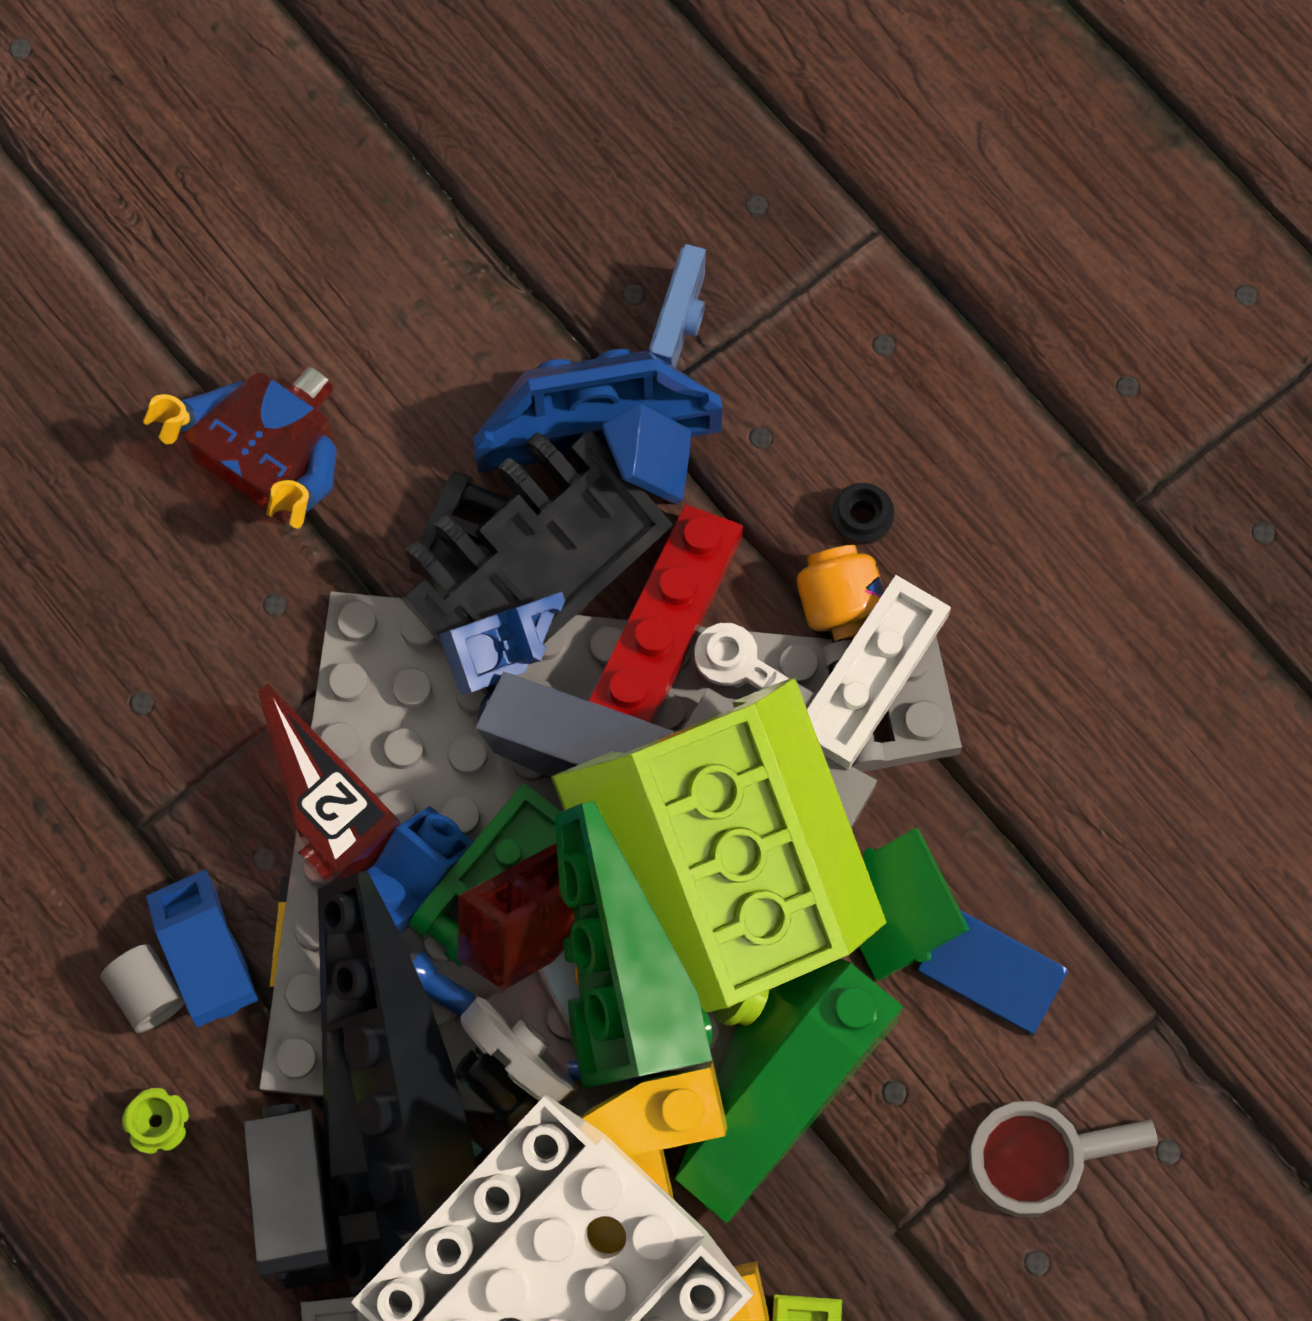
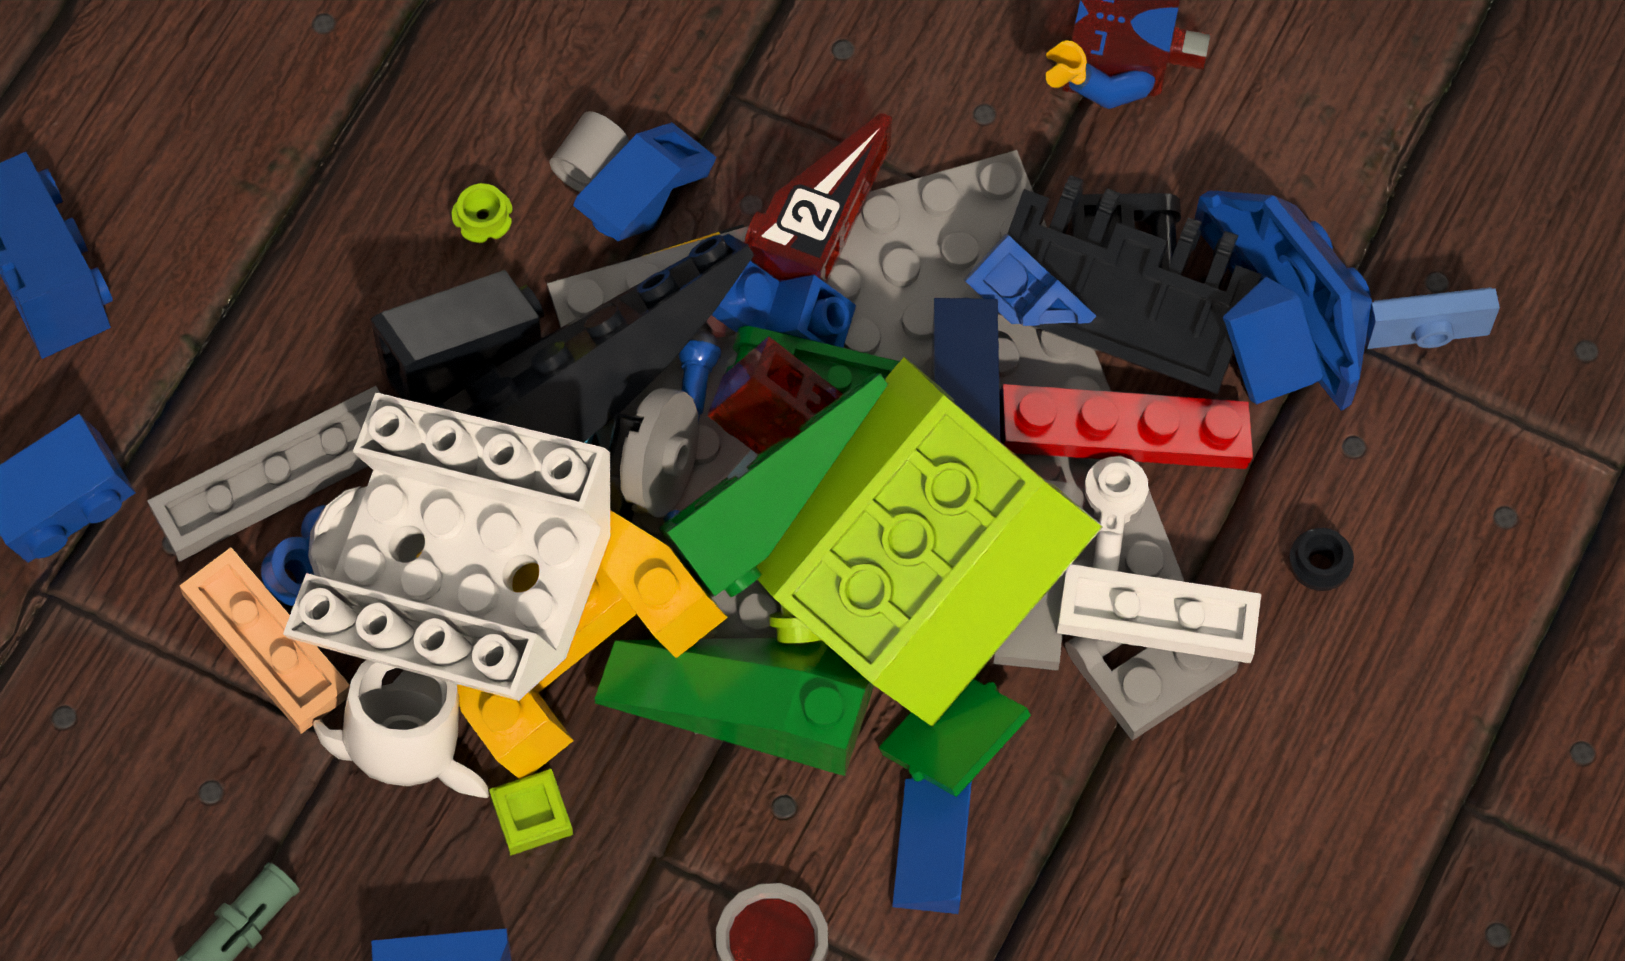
camera: 65 degrees right, 5 degrees down
(839, 590) = (1231, 557): light orange head -> none

